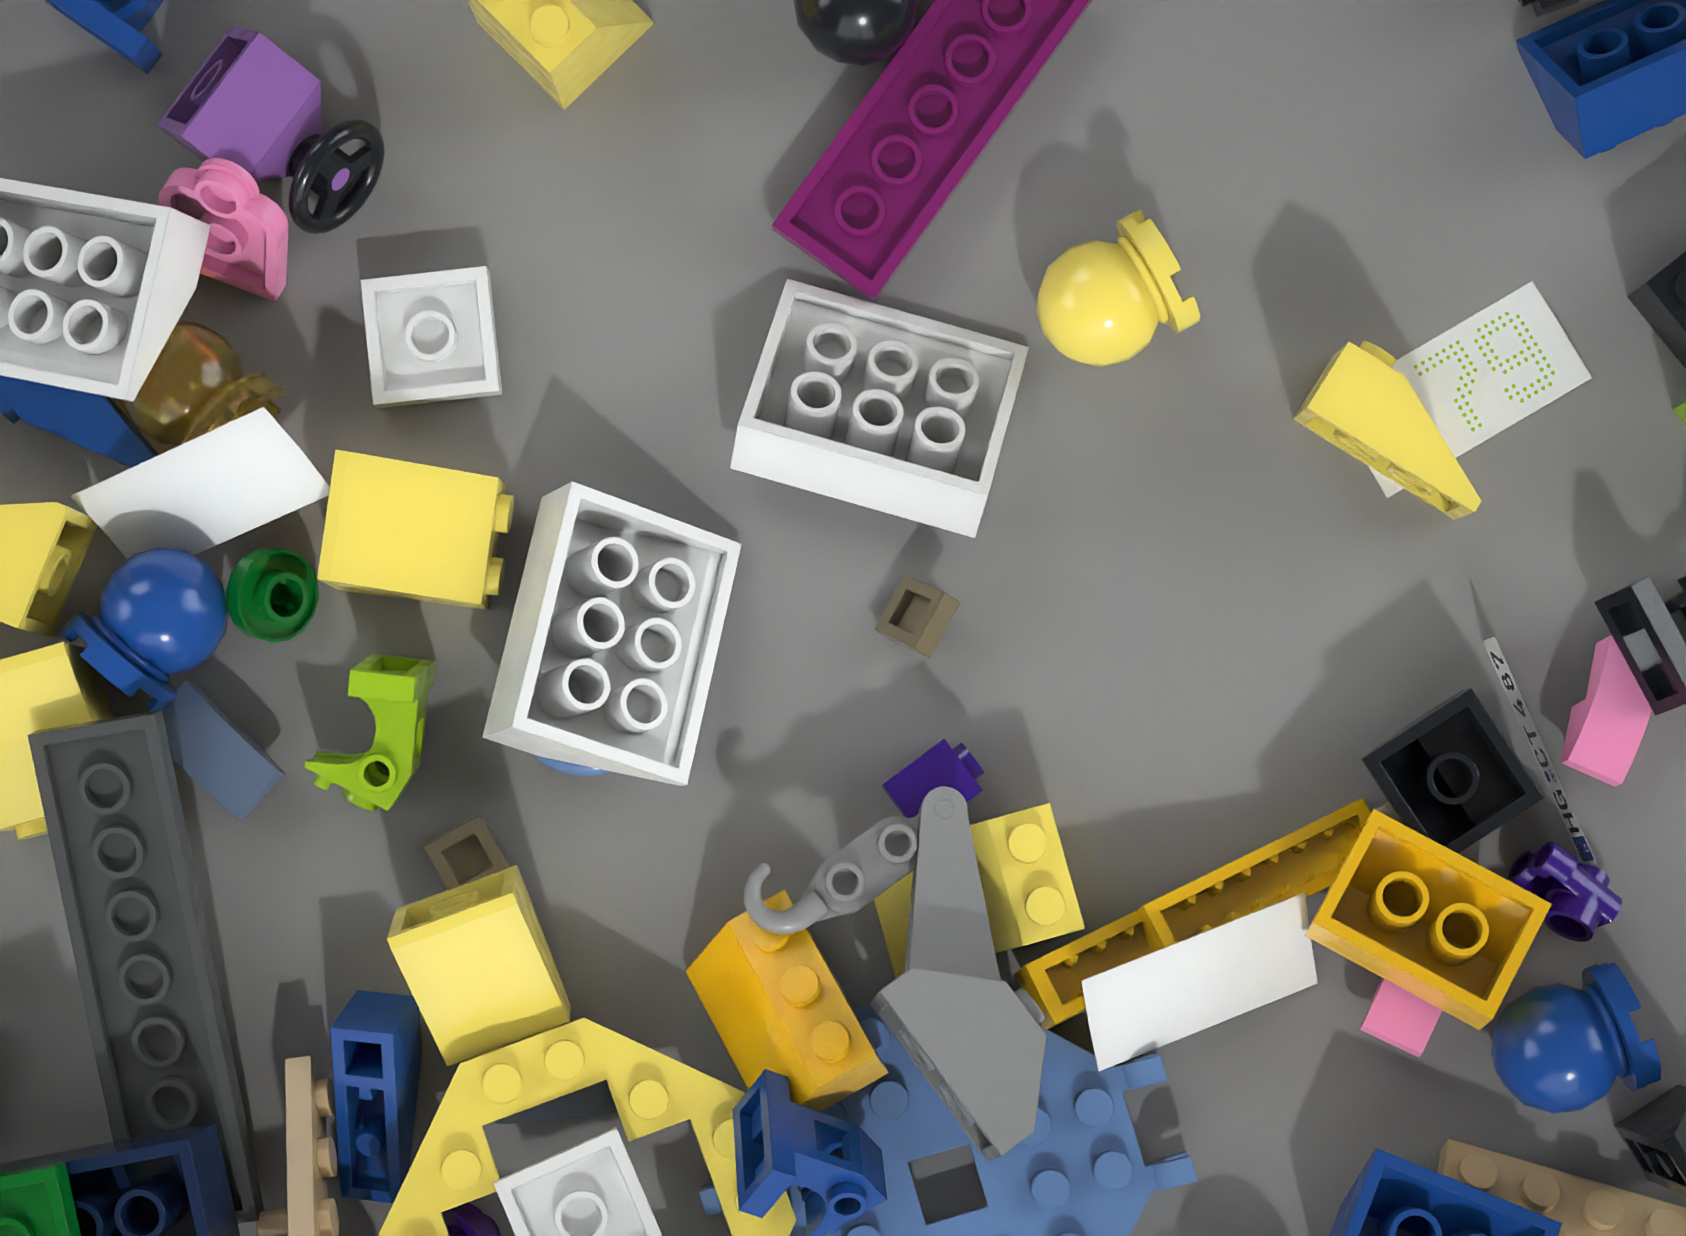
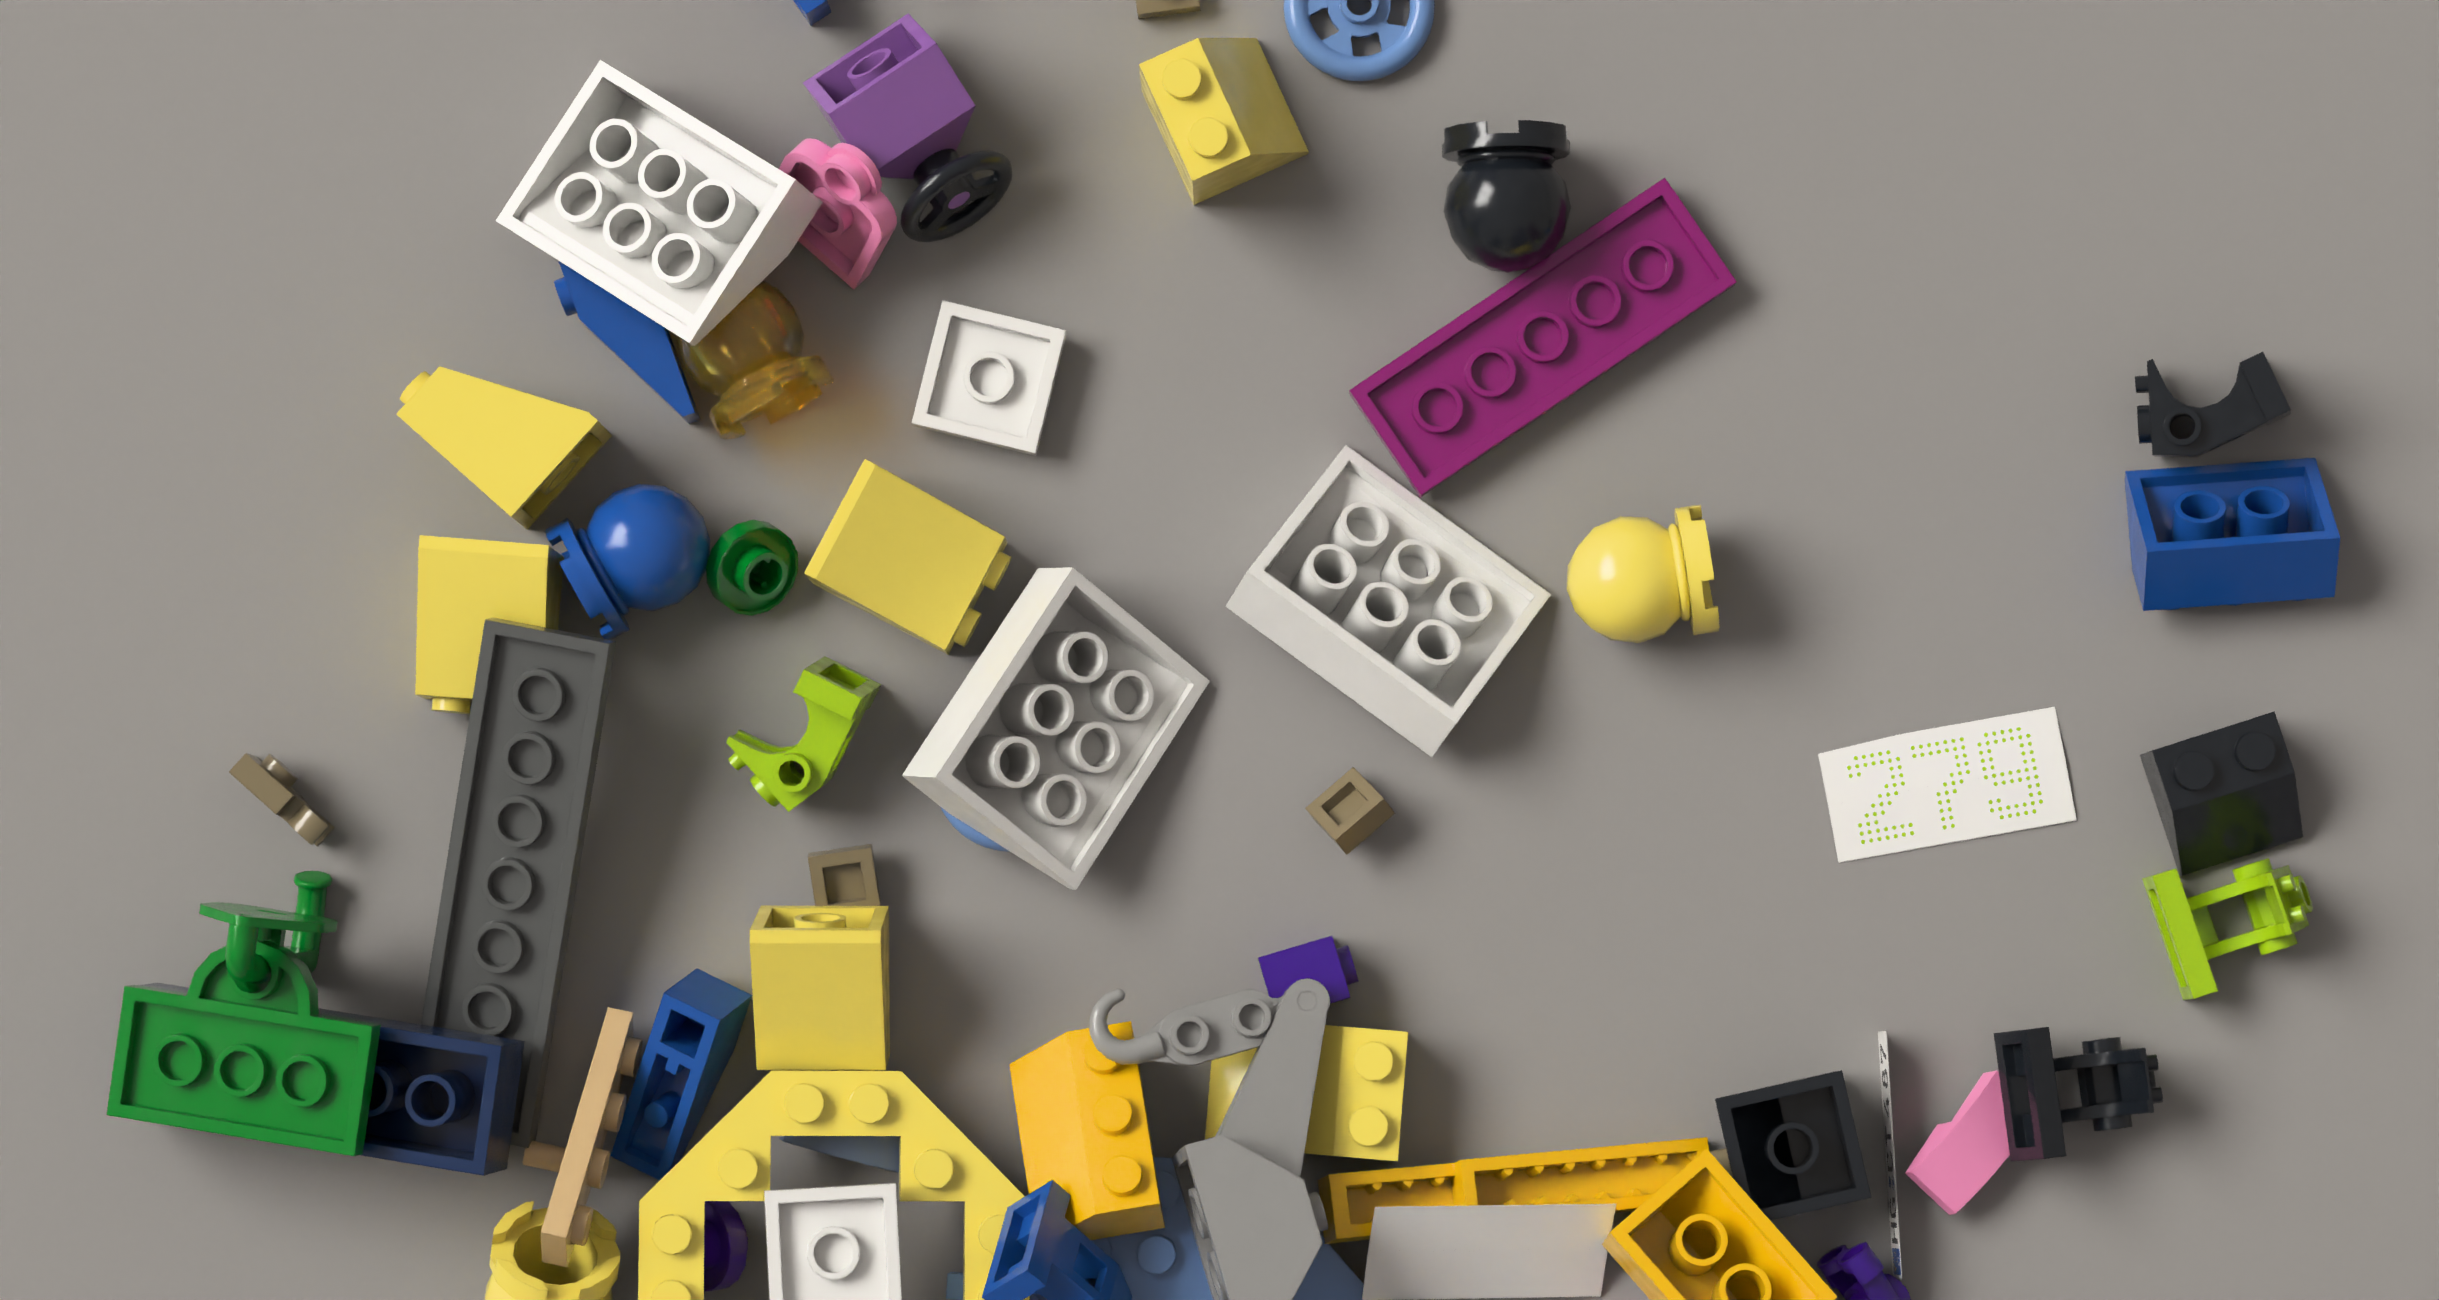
camera: 20 degrees right, 0 degrees up
(206, 489) = (727, 449): white sticker -> none
(217, 753) = (649, 699): sand blue slope -> none
(1382, 423) = (1853, 790): light yellow slope -> none

